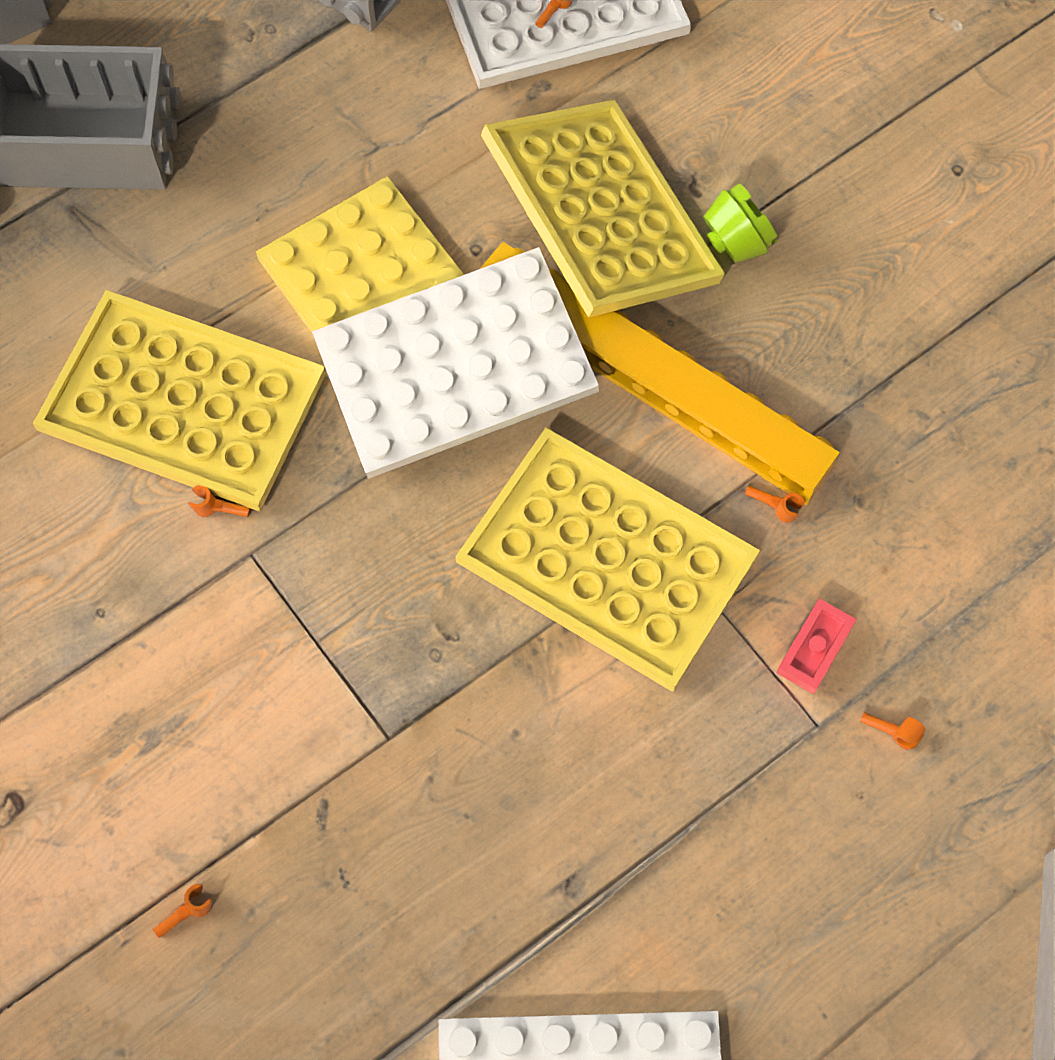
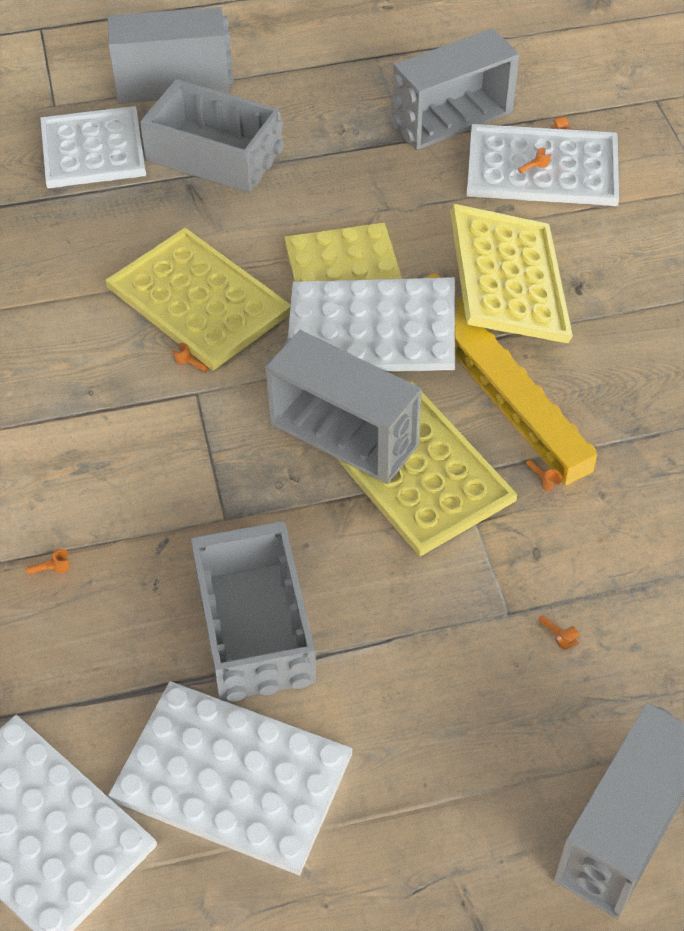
camera: 25 degrees right, 15 degrees down
(489, 521) = (344, 405): none -> light grey container
(507, 876) = (254, 612): none -> light grey container
(739, 225) = (593, 311): lime cone -> none
(816, 646) = (528, 563): coral plate -> none

